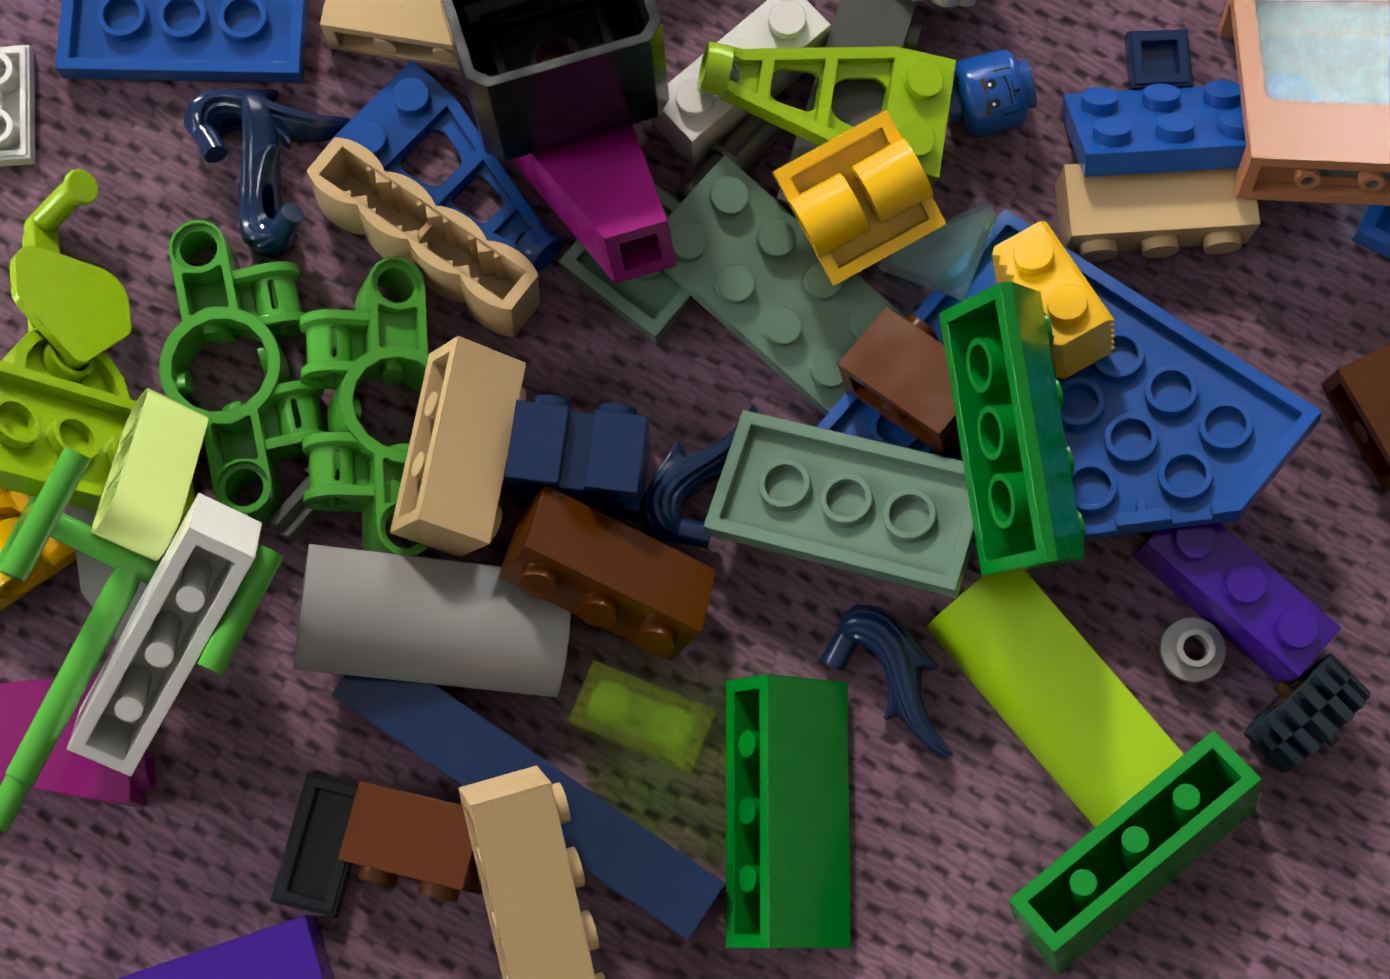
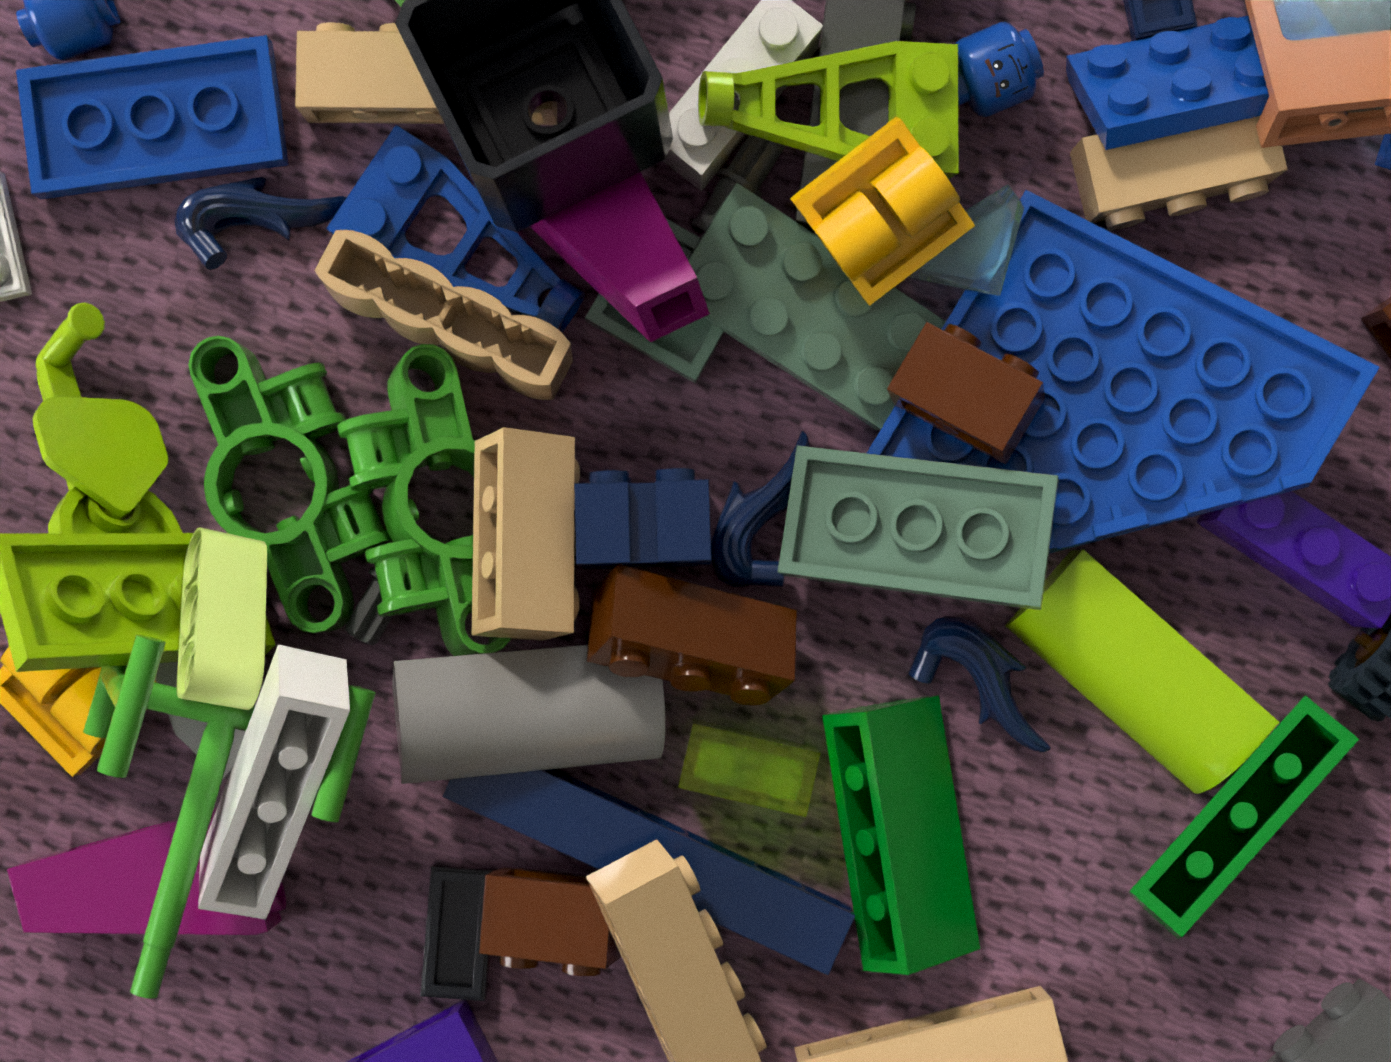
camera: 10 degrees left, 10 degrees up
(263, 220) = (277, 320): dark blue piece -> none
(1012, 430) = (1079, 447): green slope -> none
(1077, 316) = (1094, 288): yellow brick -> none
(1175, 659) = (1249, 608): light grey plate -> none

